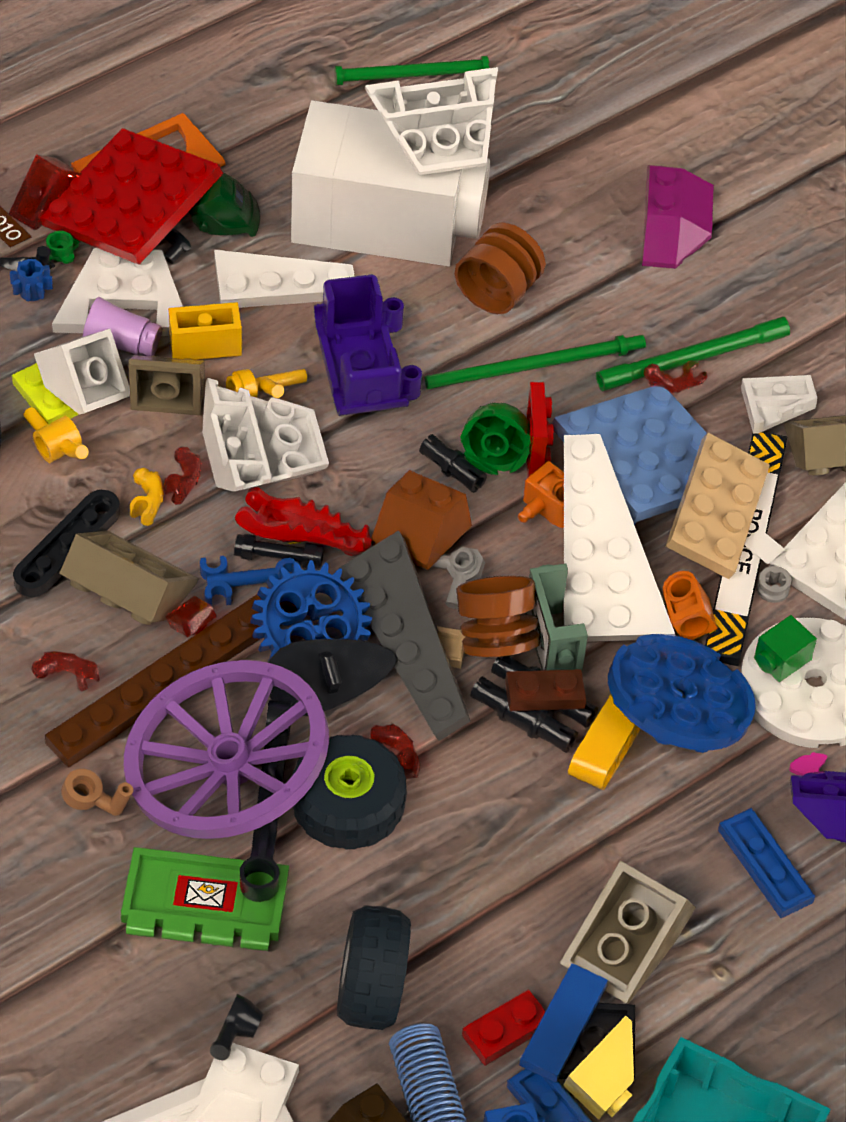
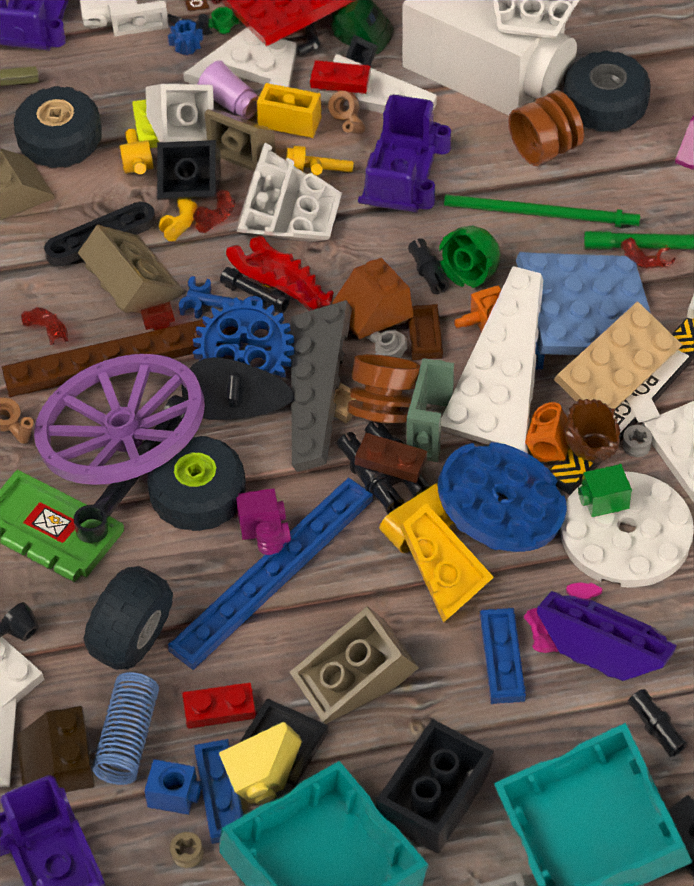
camera: 30 degrees right, 0 degrees up
(131, 437) = (188, 170): none -> black slope
(240, 275) = (340, 76): none -> red plate
(242, 238) = (361, 51): none -> black slope
(281, 326) = (335, 106): none -> medium nougat plate
(397, 739) = (260, 474): clear red piece -> none
(441, 802) = (261, 519): none -> magenta brick
(477, 864) = (269, 574): none -> blue tile
(492, 540) = (425, 333): none -> reddish brown tile
(540, 200) = (608, 90): none -> black wheel
(541, 432) = (502, 254): red plate -> none
(563, 1022) = (261, 713): blue tile -> none
(660, 784) = (444, 561): none -> yellow wing
(738, 589) = (592, 430): none -> reddish brown hair
(786, 812) = (542, 639): none -> dark pink piece
(787, 1023) = (435, 785): none -> black brick

